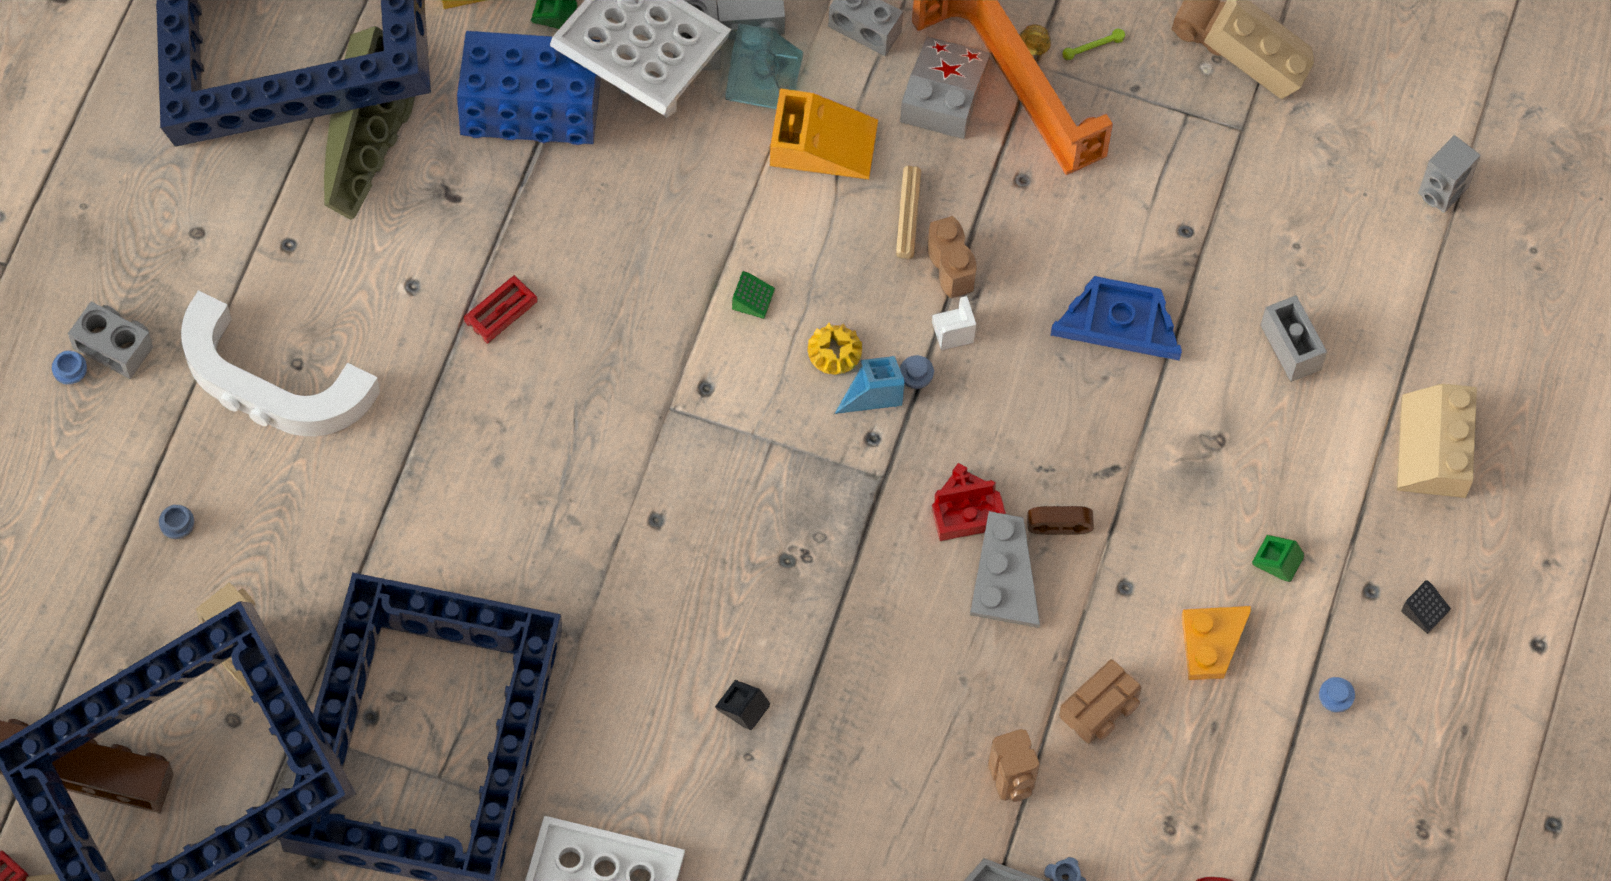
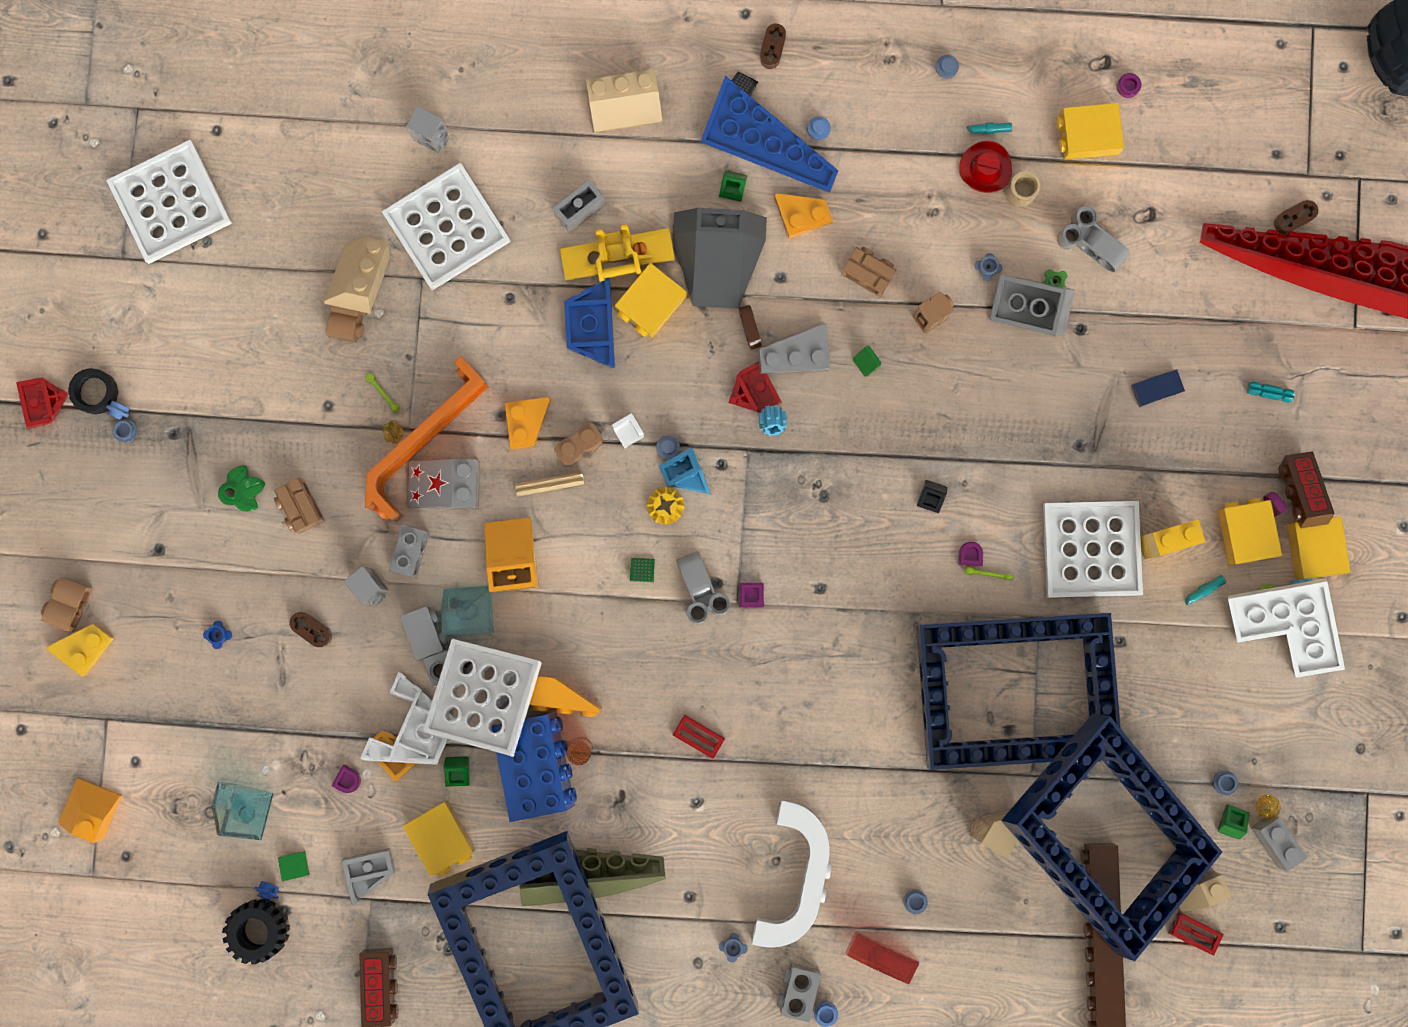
camera: 105 degrees left, 20 degrees up
(117, 454) = (881, 957): none -> clear red slope
(198, 268) = (725, 946): none -> sand blue plate
(530, 150) = (580, 751): none -> clear orange piece
(611, 144) = (558, 694): none -> light orange slope
(618, 725) = (969, 570): none -> lime hinge
(641, 733) = (970, 554): none -> magenta tile
(674, 426) = (751, 594): none -> magenta tile
(702, 359) = (699, 587): none -> light grey piece
(915, 511) = (772, 420): none -> medium azure gear
(968, 668) = (867, 361): none -> green slope
(1004, 204) = (525, 421): none -> light orange wing
(1132, 399) = (650, 301): none -> yellow brick
(1177, 508) = (718, 253): none -> dark grey wedge
(1224, 375) = (615, 247): none -> yellow piece
(1309, 219) = (418, 203): none -> white piece
(1343, 600) = (752, 133): none -> blue wing
(1478, 665) = (767, 45): none -> reddish brown beam

